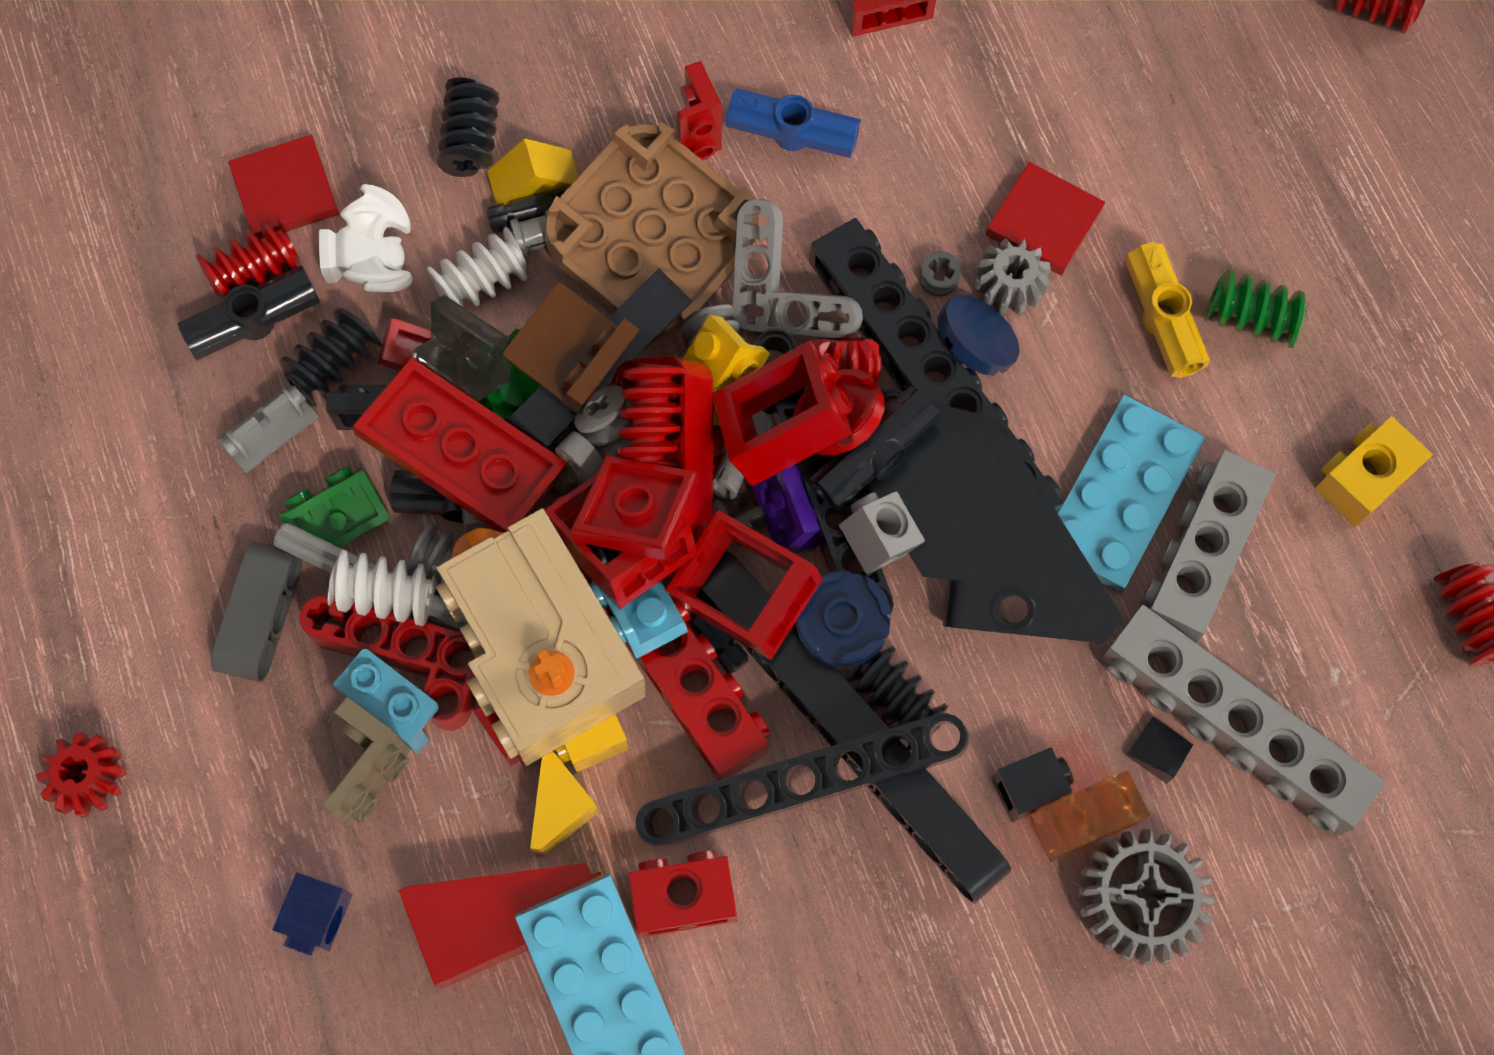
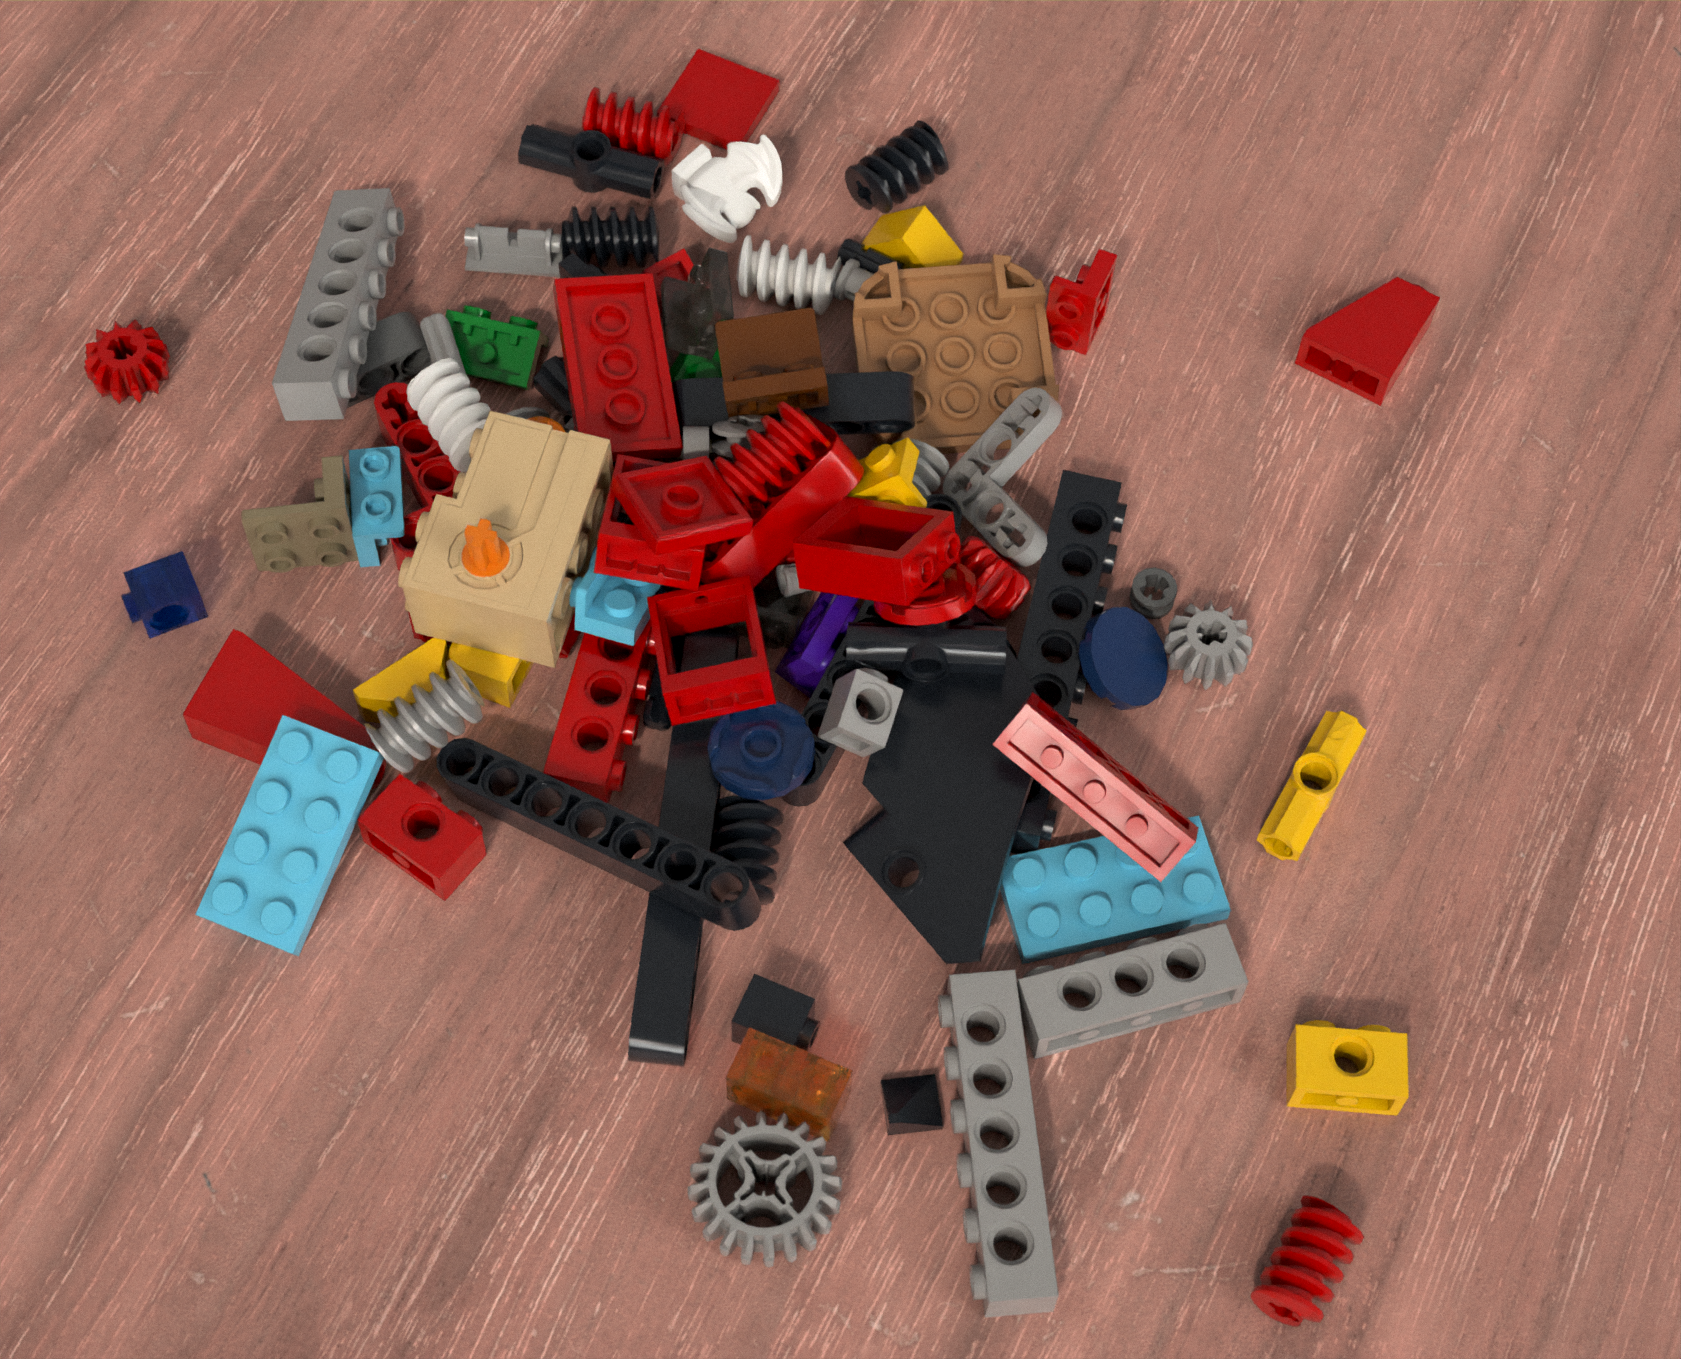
camera: 45 degrees right, 10 degrees down
(202, 587) = (338, 305): none -> light grey brick
(612, 819) = (427, 719): none -> light grey piece
(769, 115) = (1172, 398): blue piece -> none
(1047, 215) = (1295, 630): red tile -> none
(1073, 437) = (1097, 787): none -> fence
(1258, 306) = (1391, 854): green piece -> none

